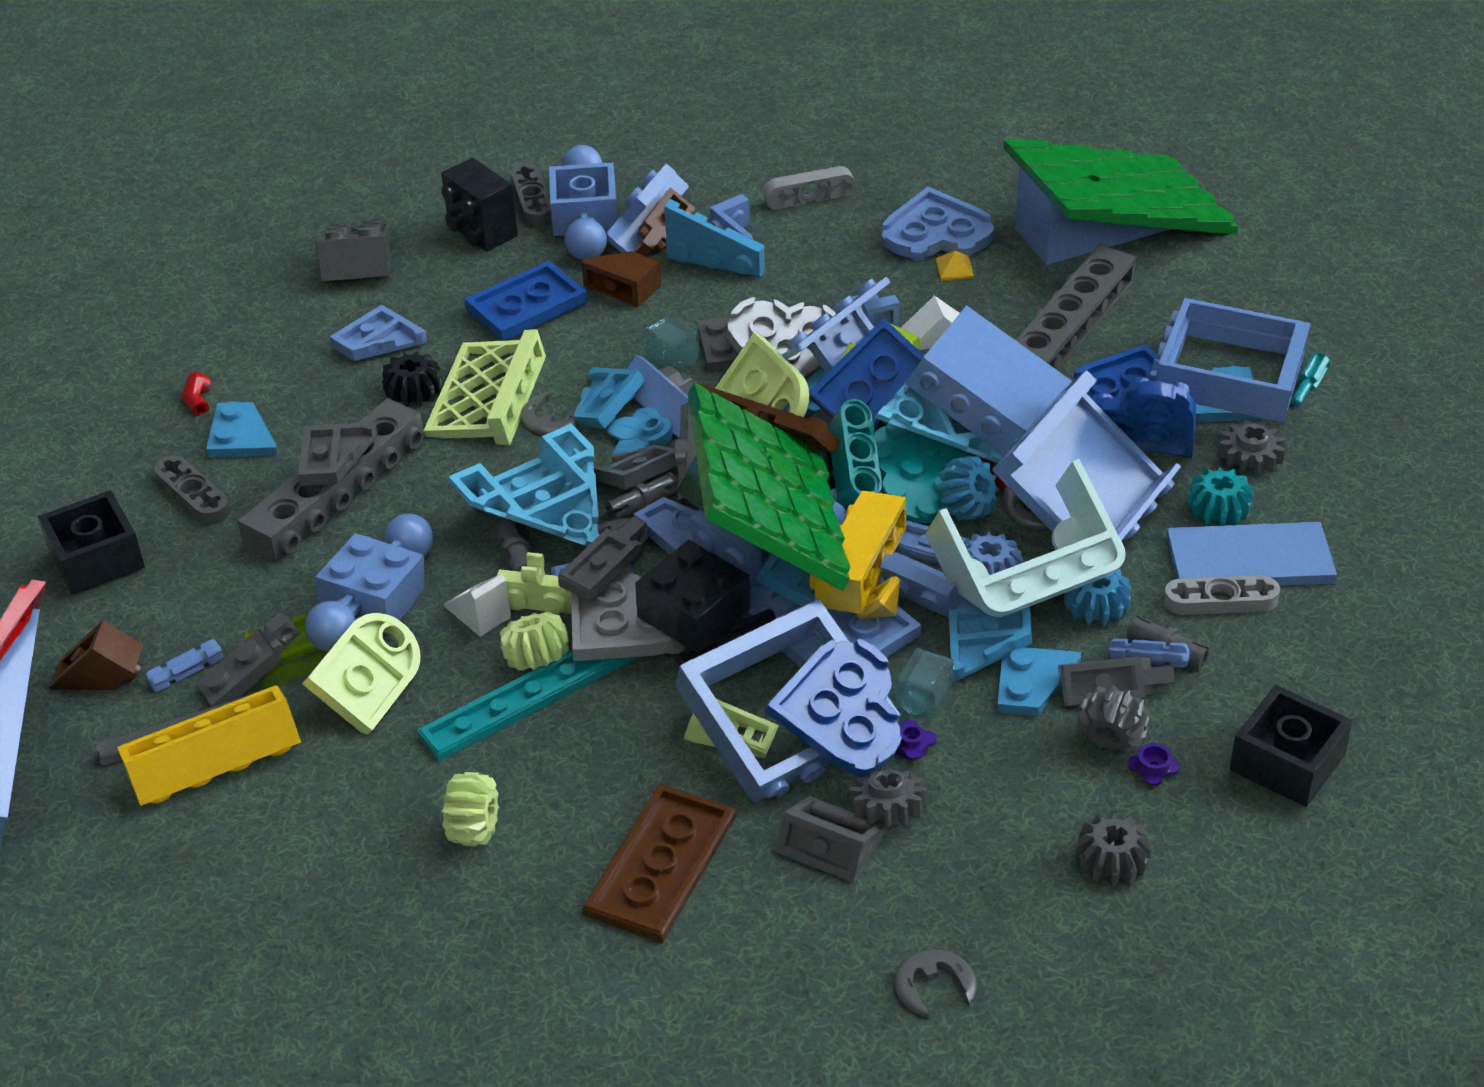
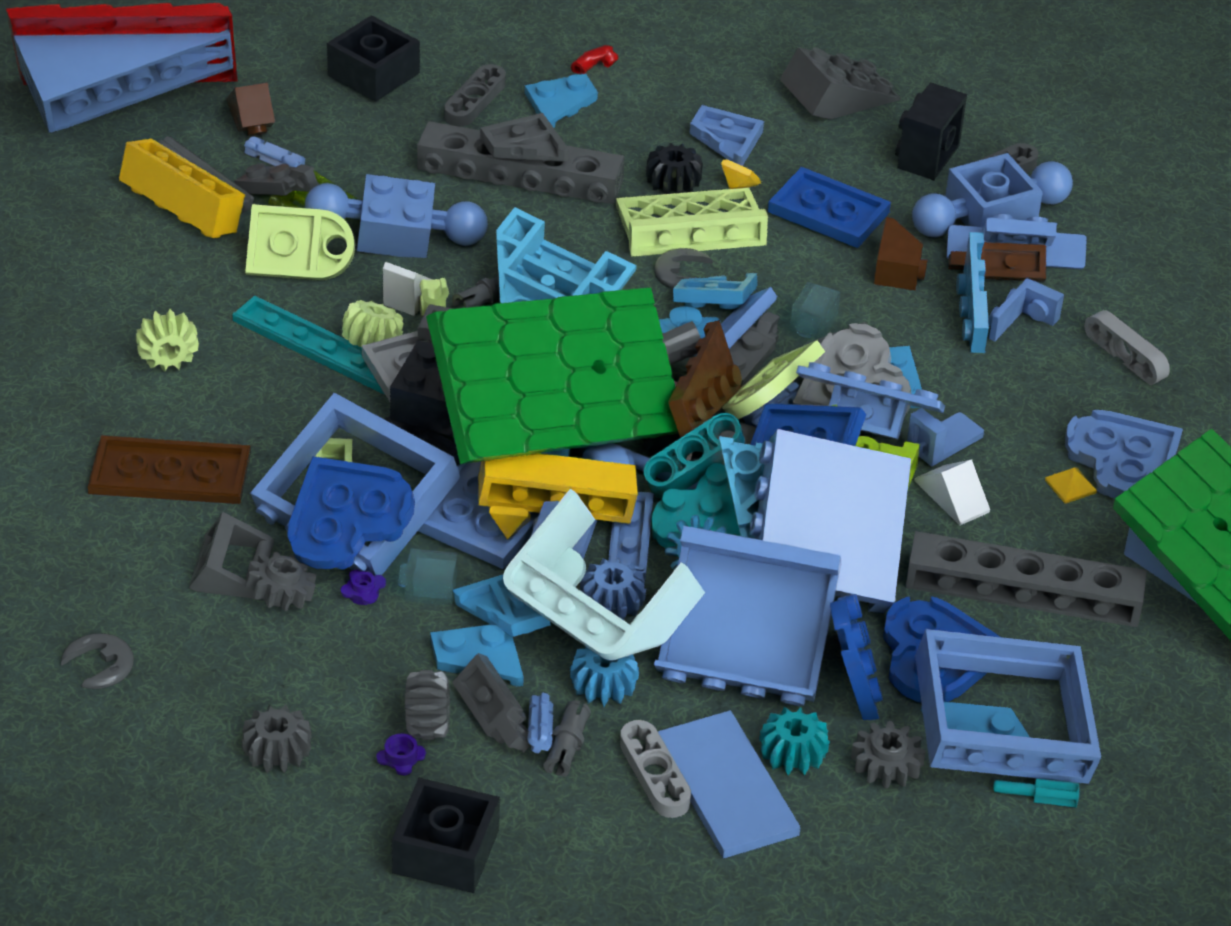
camera: 65 degrees right, 0 degrees up
(445, 343) = (739, 176): none -> yellow slope

